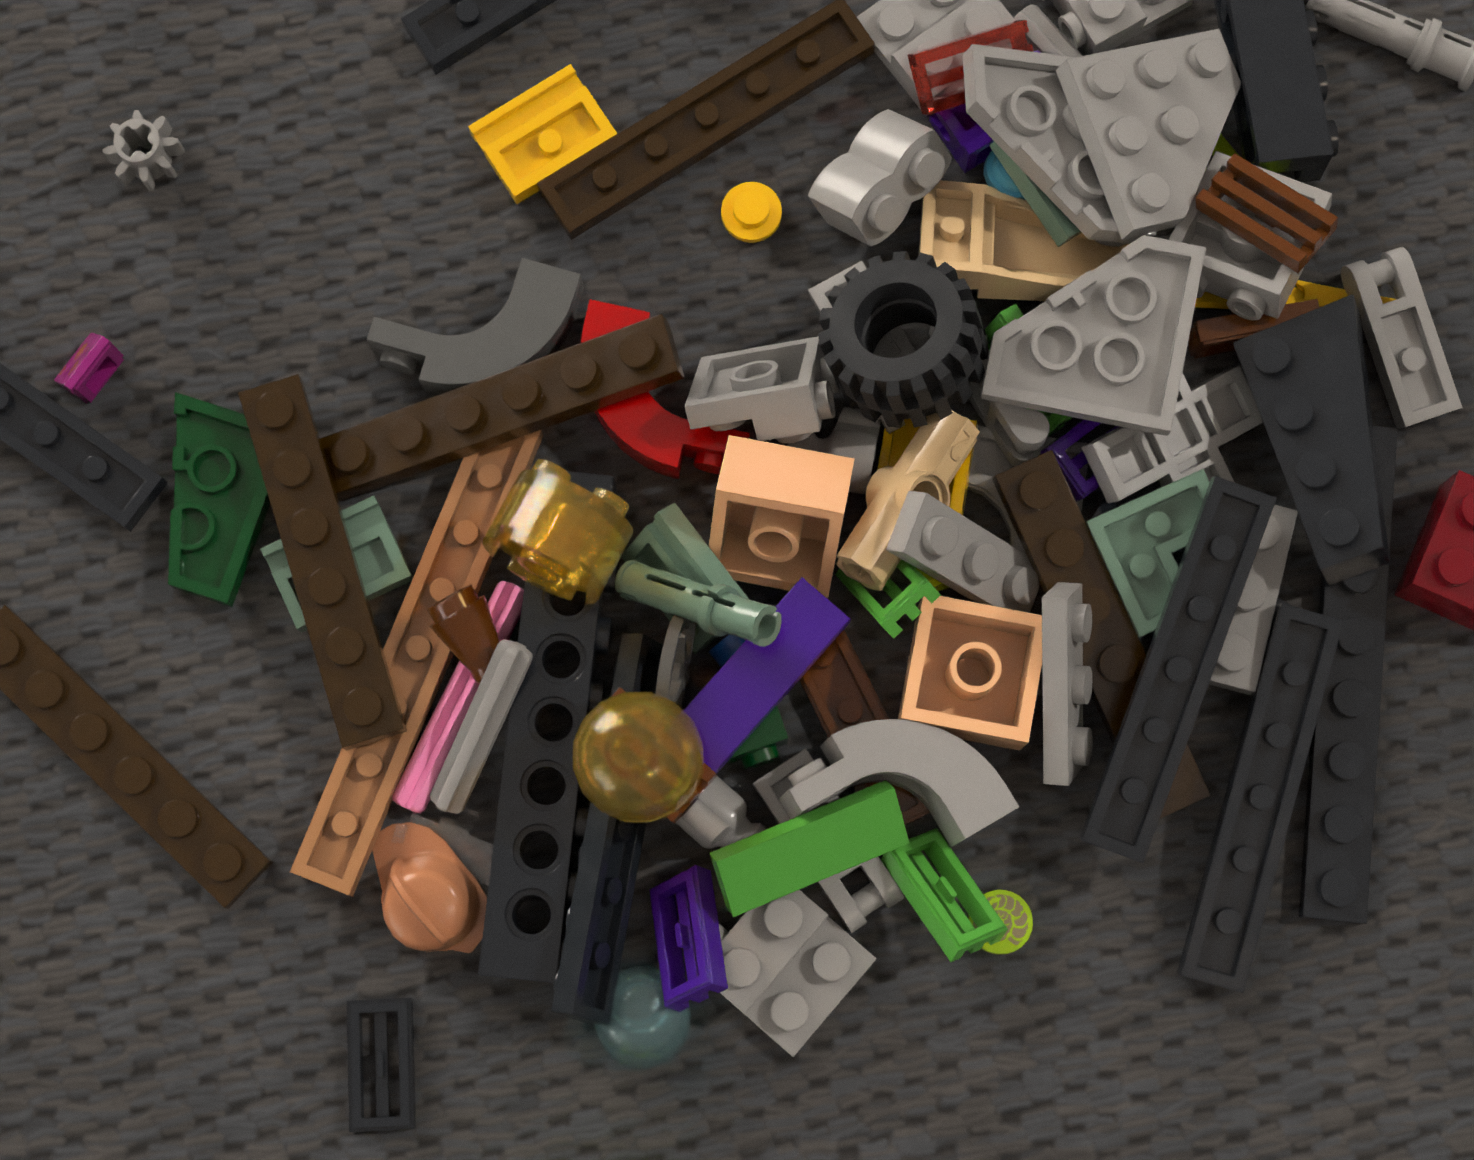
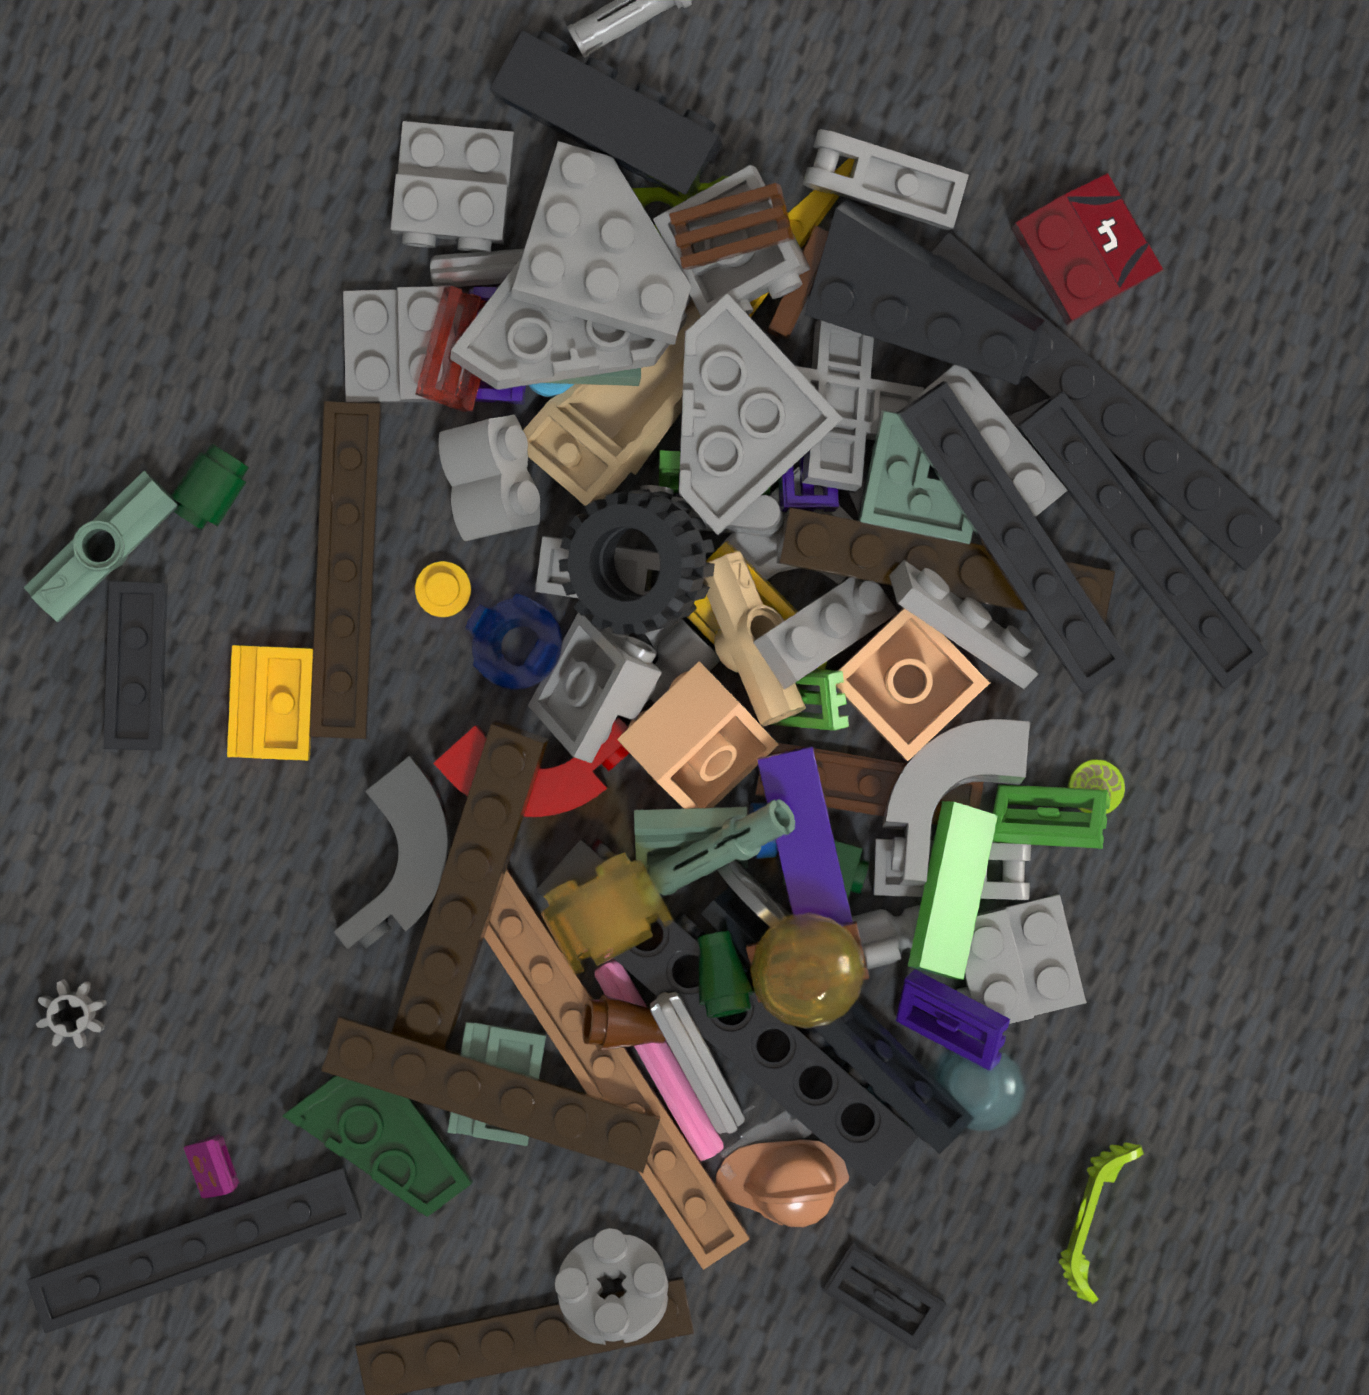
camera: 55 degrees left, 10 degrees up
(221, 765) = (614, 1318): none -> light grey plate
(576, 687) = (722, 978): none -> dark green cone
(750, 277) = (491, 625): none -> clear blue piece

